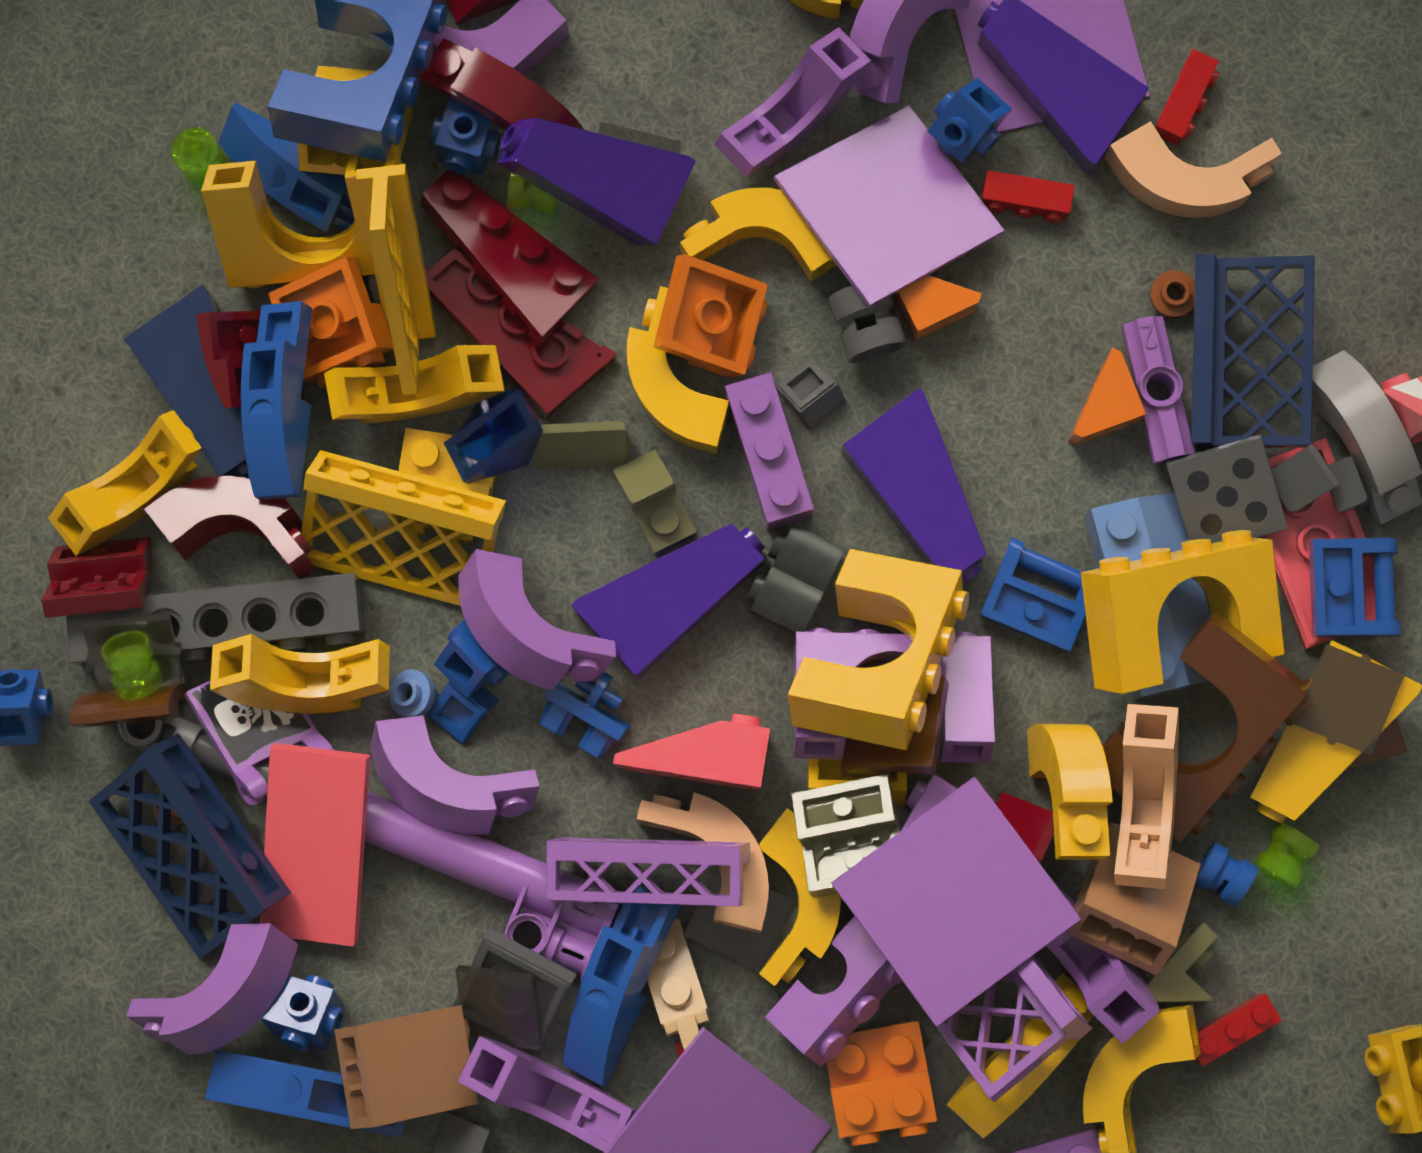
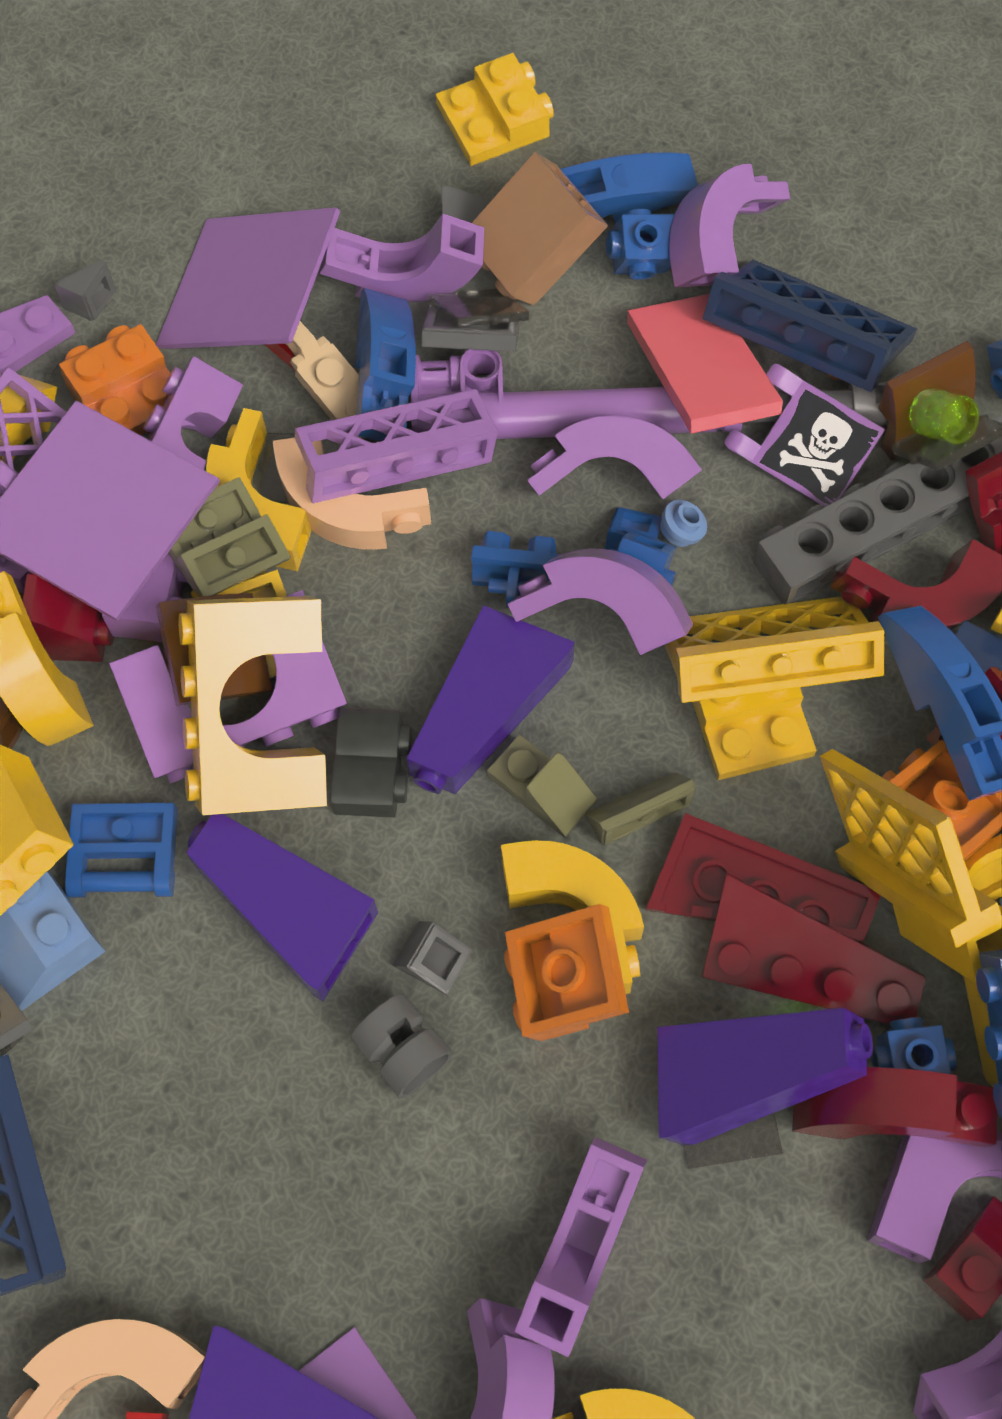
camera: 155 degrees right, 15 degrees down
(297, 682) = (794, 483): yellow arch -> none
(444, 384) = (803, 801): yellow arch -> none
(495, 437) = (730, 765): clear blue slope -> none
(712, 754) = (391, 559): coral slope -> none
(762, 215) = (550, 1120): yellow arch -> none
(769, 451) = (449, 866): medium lavender arch -> none
(888, 206) = (429, 1181): piece -> none
(934, 304) = (344, 1096): orange slope -> none
(969, 120) = (377, 1321): blue brick -> none
(1027, 196) = (282, 1267): red piece -> none
(1111, 403) = (114, 1067): orange slope -> none
(1152, 360) = (83, 1133): medium lavender piece -> none
(1167, 306) = (98, 1229): dark orange plate -> none

